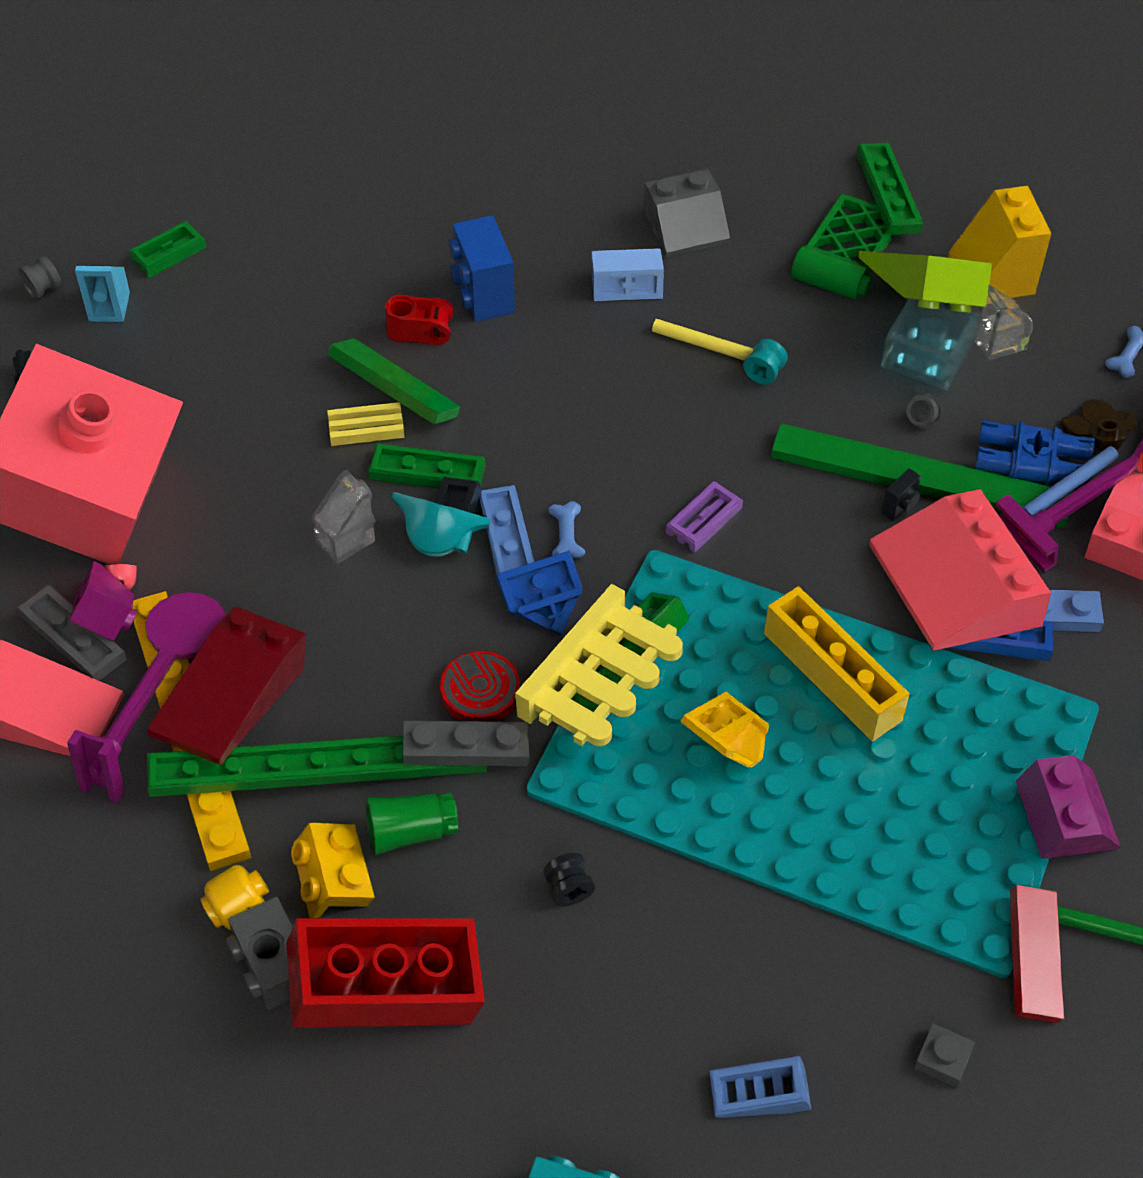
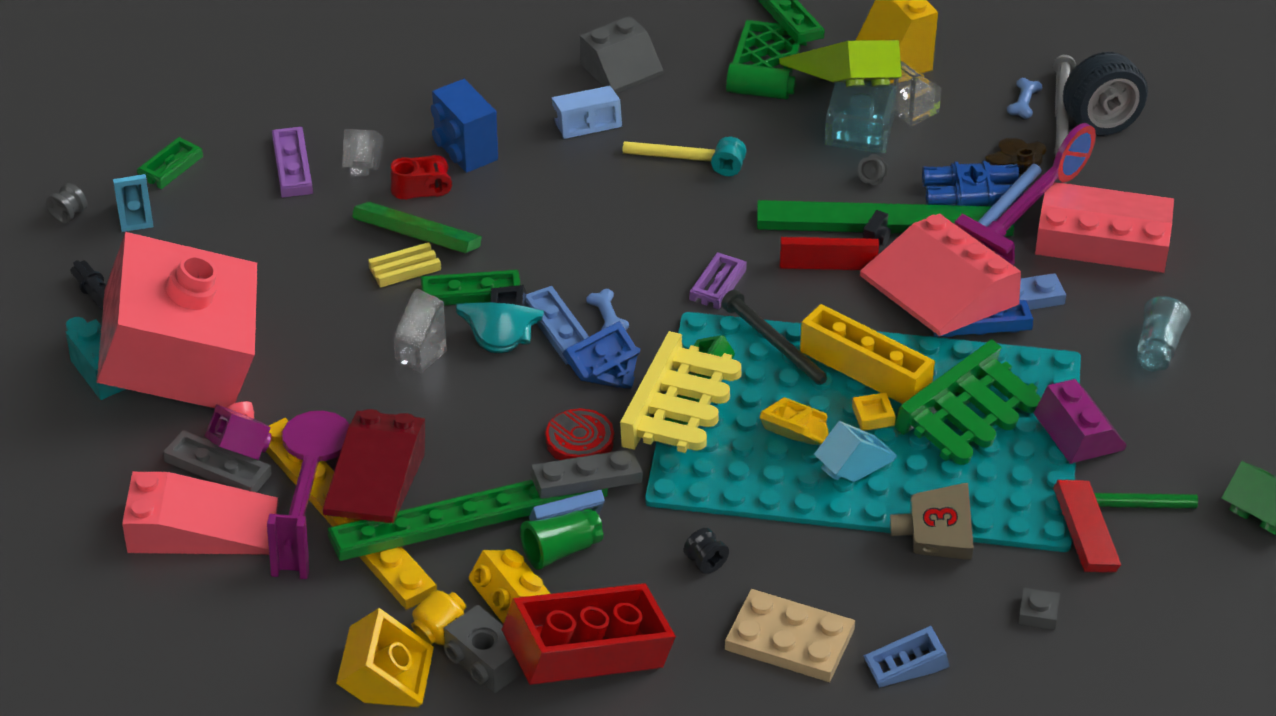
camera: 15 degrees left, 10 degrees down
(153, 944) = (385, 662): none -> yellow slope
(293, 273) = (292, 162): none -> medium lavender tile
(367, 276) = (361, 151): none -> clear slope
(428, 784) = (591, 500): none -> medium blue tile
(632, 1018) = (790, 635): none -> tan plate
(709, 552) = (734, 303): none -> pearl dark grey bar
(780, 789) = (852, 453): none -> medium azure slope
(823, 737) = (873, 411): none -> yellow plate
(837, 509) = (827, 253): none -> red tile
(852, 909) = (938, 522): none -> dark tan torso
(943, 720) = (965, 380): none -> green fence

